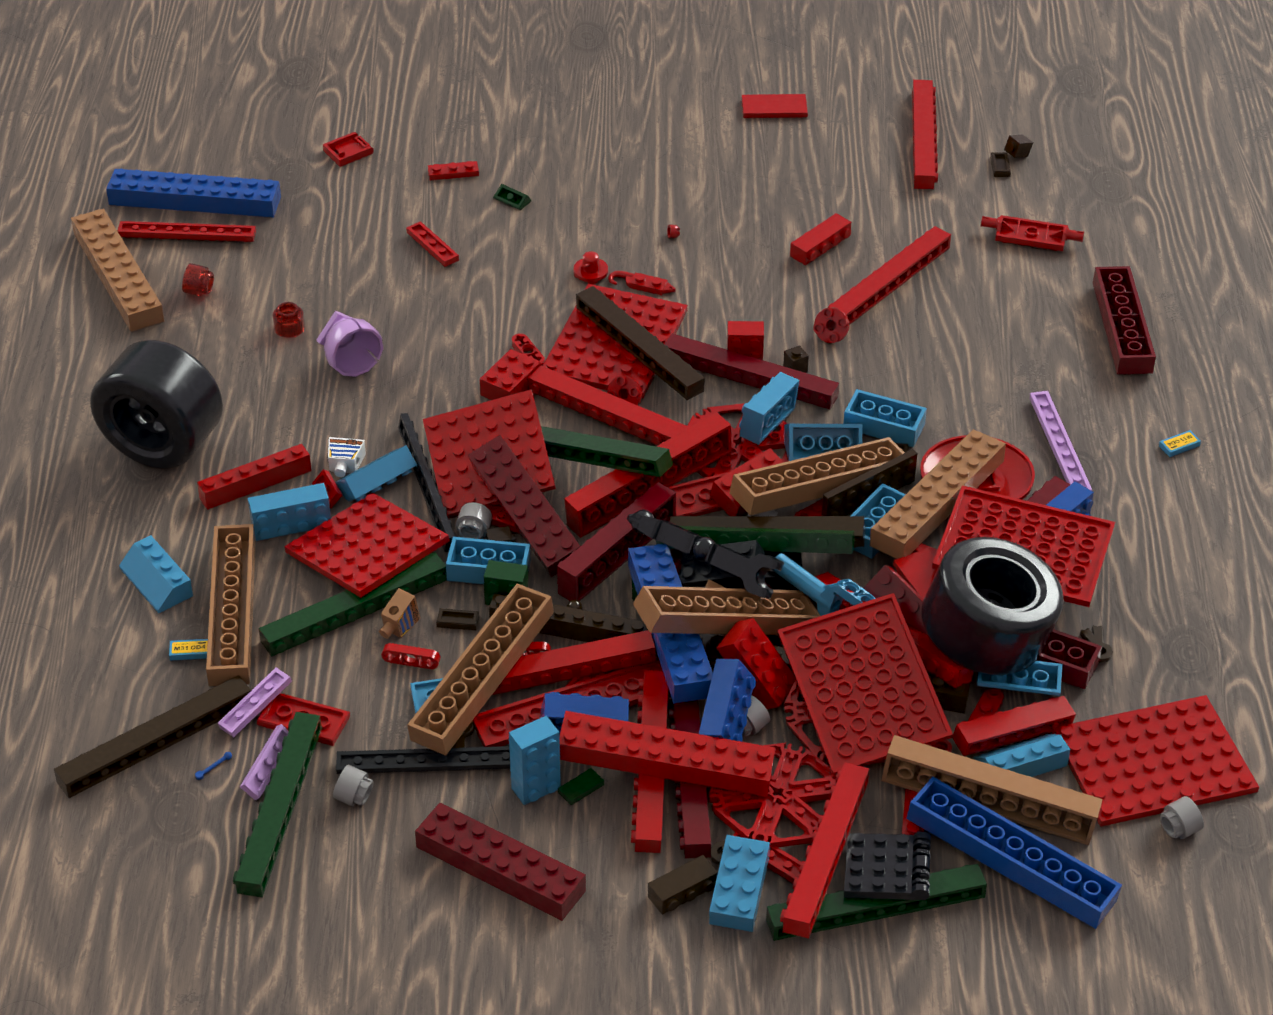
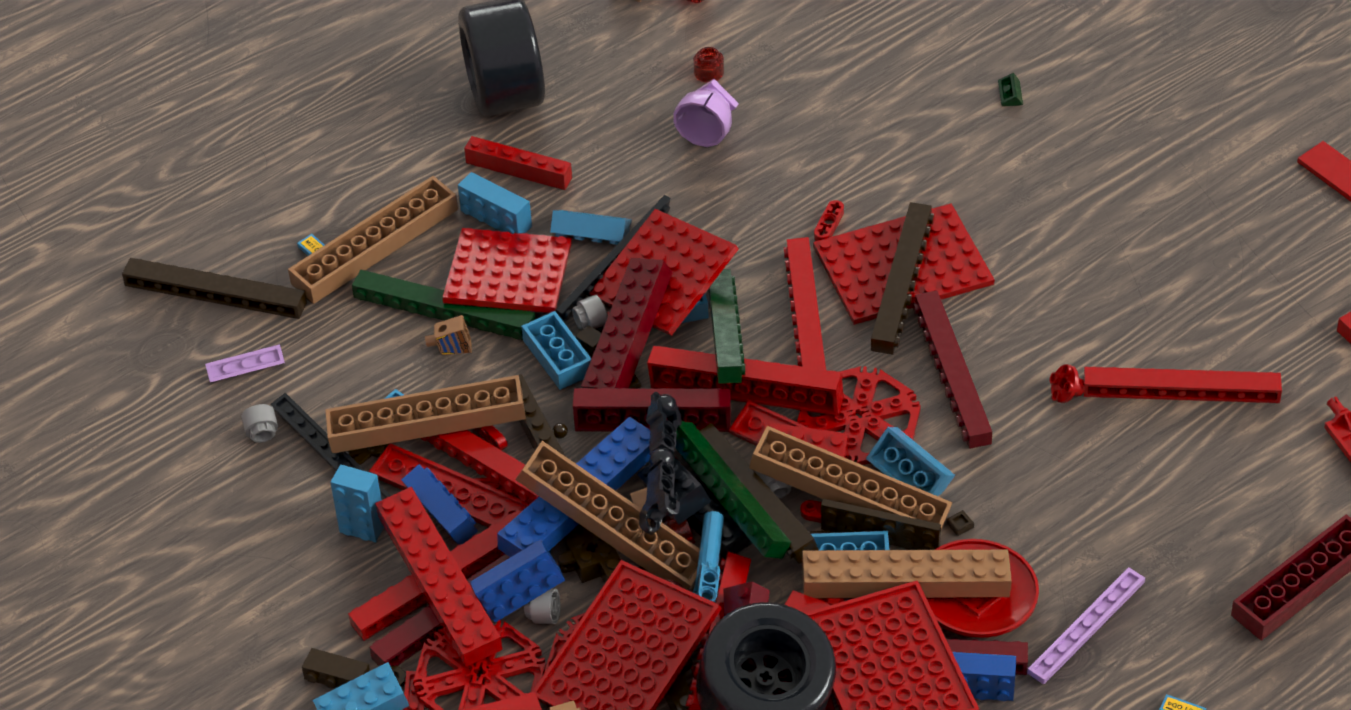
camera: 55 degrees right, 5 degrees up
(156, 575) = (368, 182): dark azure slope -> none
(200, 774) = (204, 337): blue hinge -> none
(254, 702) = (291, 317): lavender plate -> none
(278, 805) = (209, 394): dark green brick -> none
(284, 707) = (308, 355): red tile -> none
(331, 487) = (544, 215): red plate -> none
(345, 455) = (593, 196): white torso -> none
(429, 658) = (421, 370): red beam -> none
(432, 244) = (893, 83): red plate -> none
(453, 170) = (1002, 35): red plate -> none
(457, 619) = (486, 369): dark brown tile -> none
(501, 861) = (264, 552): dark red brick -> none
(502, 577) = (540, 374): dark green brick -> none
(508, 375) = (775, 226): red brick -> none
(581, 786) = (382, 552): dark green tile -> none
(590, 268) = (972, 193): red plate -> none
(626, 389) = (834, 308): red plate -> none
(643, 282) = (994, 235): red plate -> none
(673, 231) = (1080, 211): red hinge -> none
(746, 338) = (978, 341): red brick -> none
(756, 652) = (583, 568): red brick -> none
(768, 408) = (902, 404): dark azure brick -> none
(796, 359) = (995, 389): dark brown brick -> none
(820, 239) = (1180, 310): red brick -> none
(886, 417) = (983, 488): dark azure brick -> none

